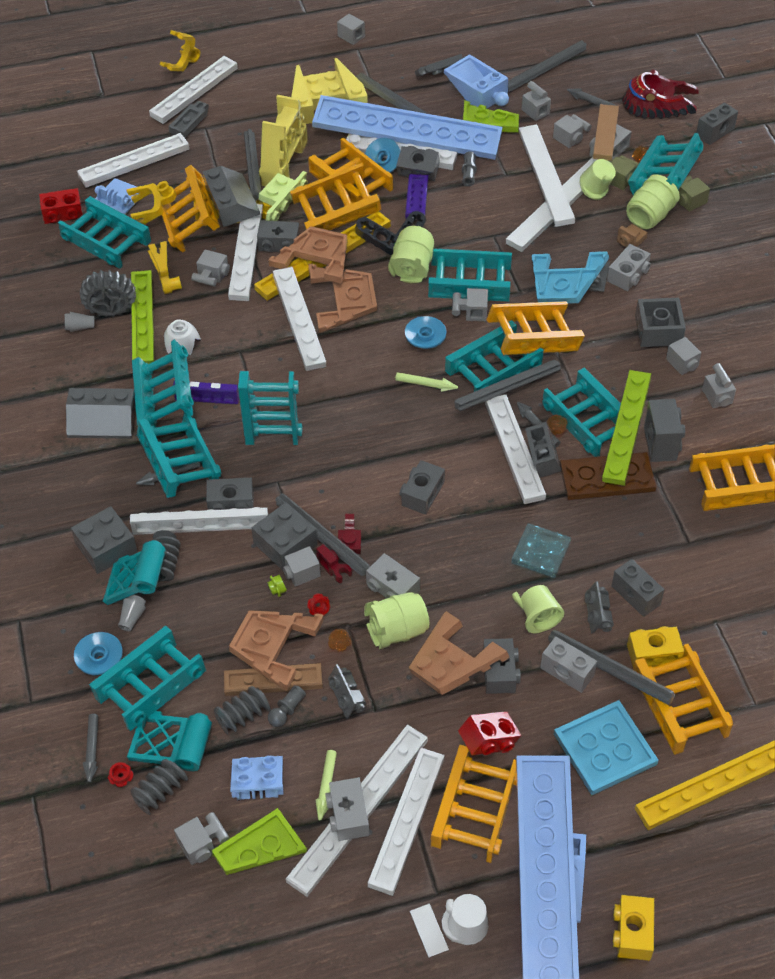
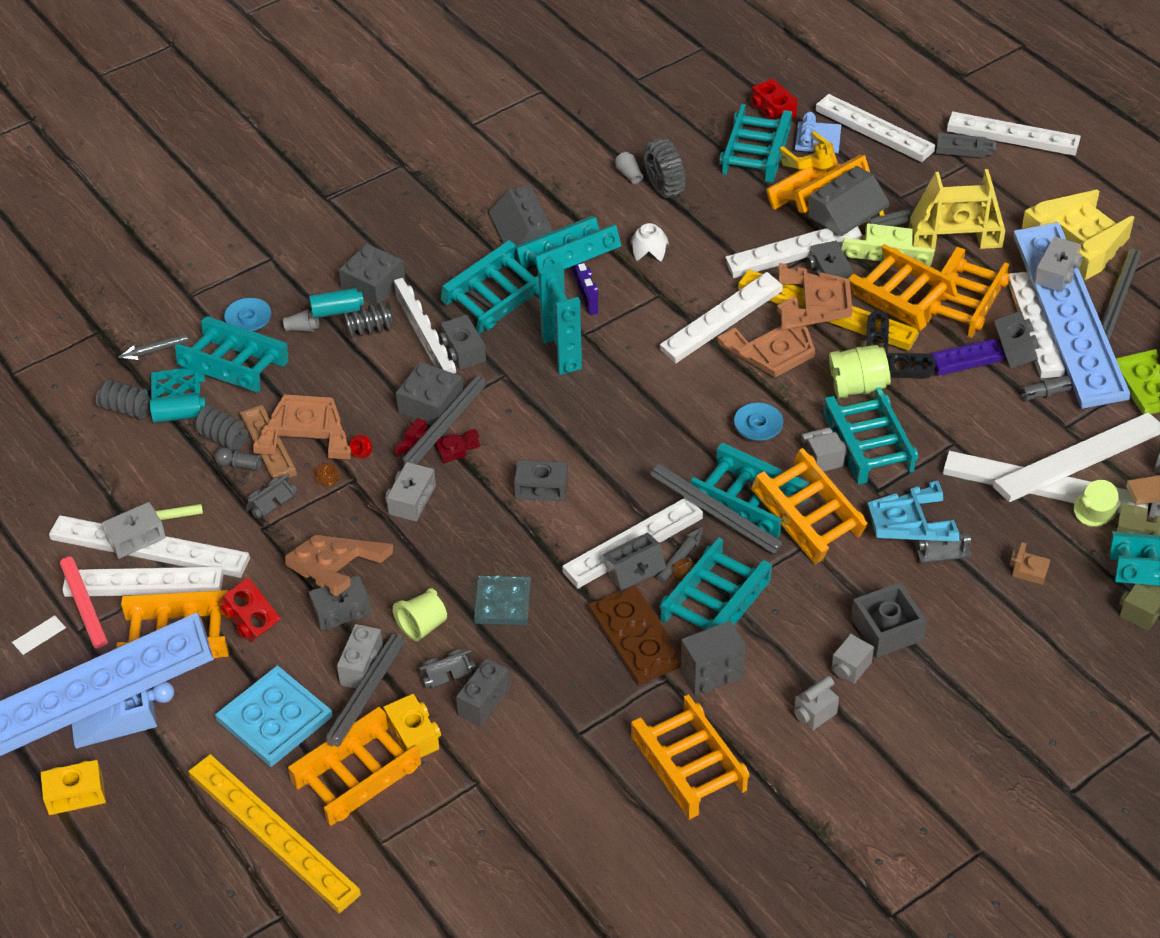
camera: 70 degrees right, 5 degrees down
(120, 768) = (131, 373): red plate -> none
(143, 317) = (662, 206): lime plate -> none
(160, 264) = (716, 204): yellow piece -> none
(189, 54) = (1065, 110): yellow piece -> none
(196, 839) = (80, 443): light grey brick -> none
(211, 268) = (755, 232): light grey brick -> none
(257, 775) = (156, 462): light blue hinge -> none
(259, 844) = (88, 486): lime wing -> none
(276, 585) = (373, 410): lime plate -> none
(301, 566) = (398, 418): light grey brick -> none
(368, 109) = (1058, 264): none -> light grey brick
(384, 147) = (1007, 304): dark azure dish -> none
(396, 619) = (358, 502): yellowish green piece -> none
(418, 874) = (83, 602): none -> coral axle
(444, 384) = (694, 456): yellowish green piece -> none
(465, 919) = (48, 650): white hat -> none
(626, 428) = (689, 622): lime plate -> none
(629, 267) = (969, 573): light grey brick -> none
(652, 202) = (1087, 563): yellowish green piece -> none

